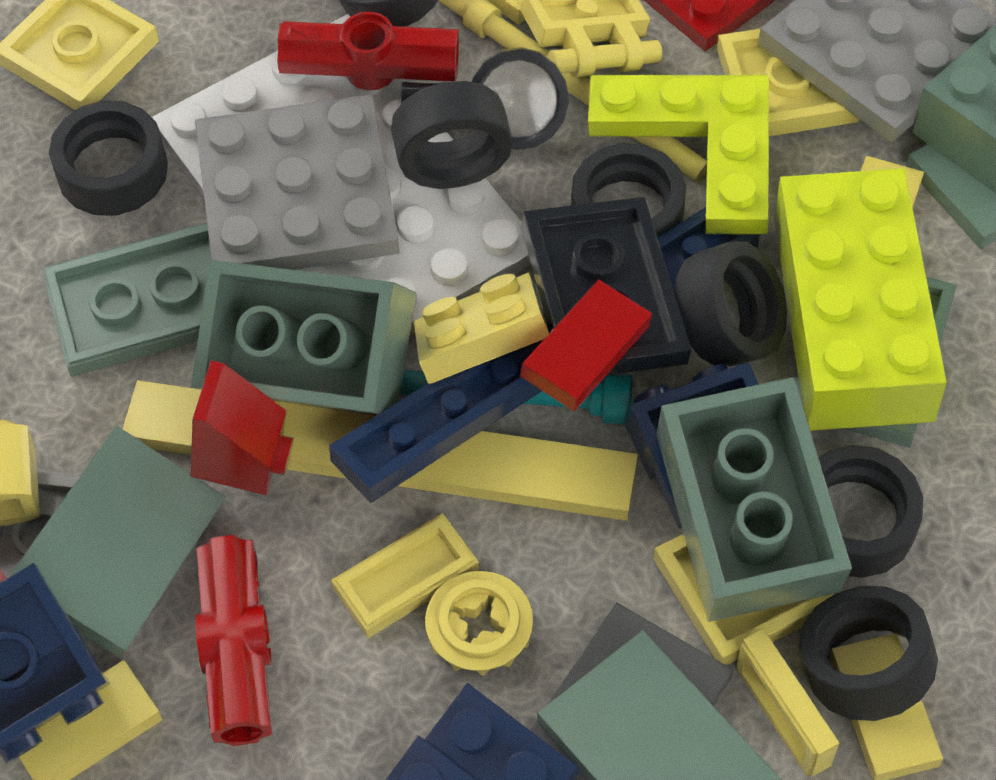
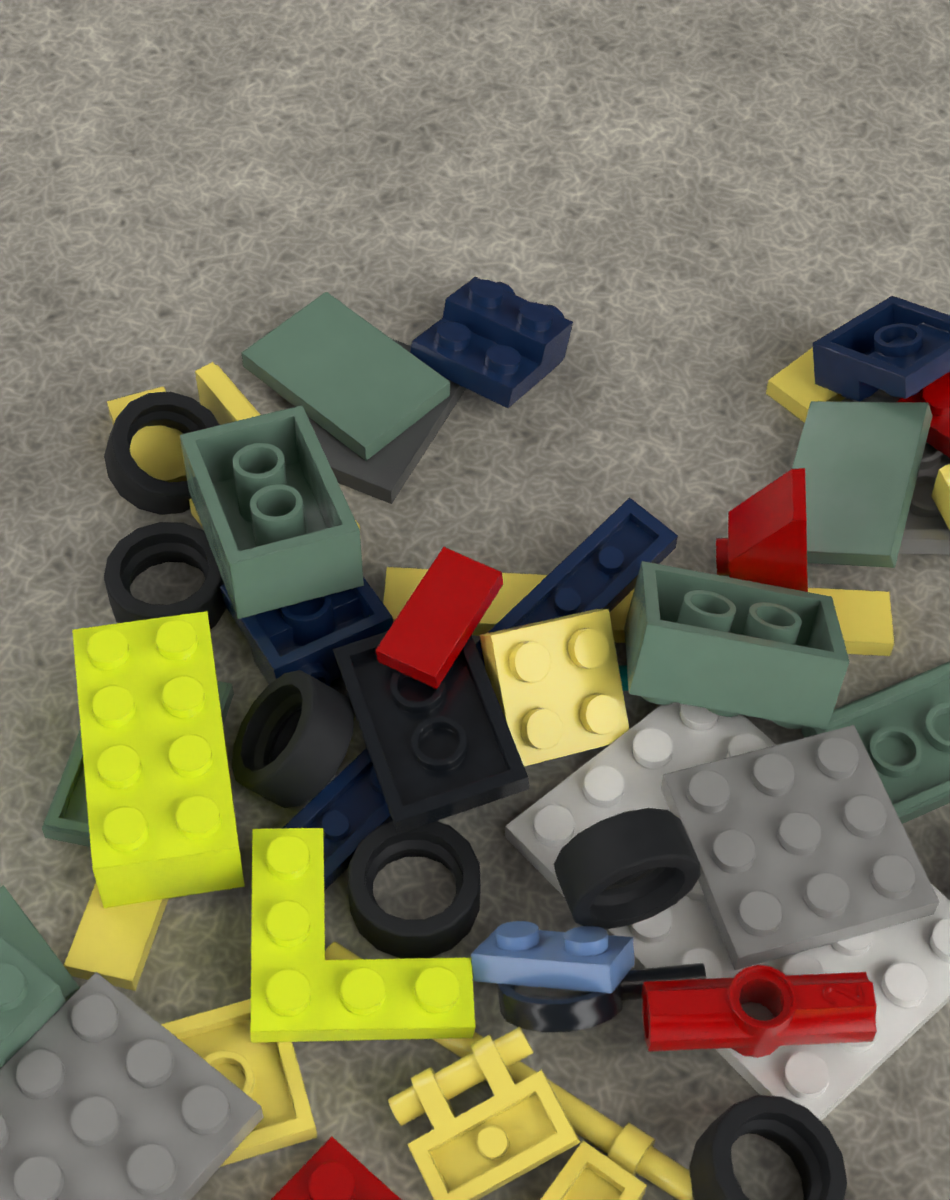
camera: 170 degrees right, 5 degrees down
(233, 641) = (721, 427): red piece -> none
(403, 575) = (582, 506): light yellow tile -> none
(468, 596) = (496, 456): light yellow gear -> none
(535, 118) = (568, 960): none -> medium blue plate

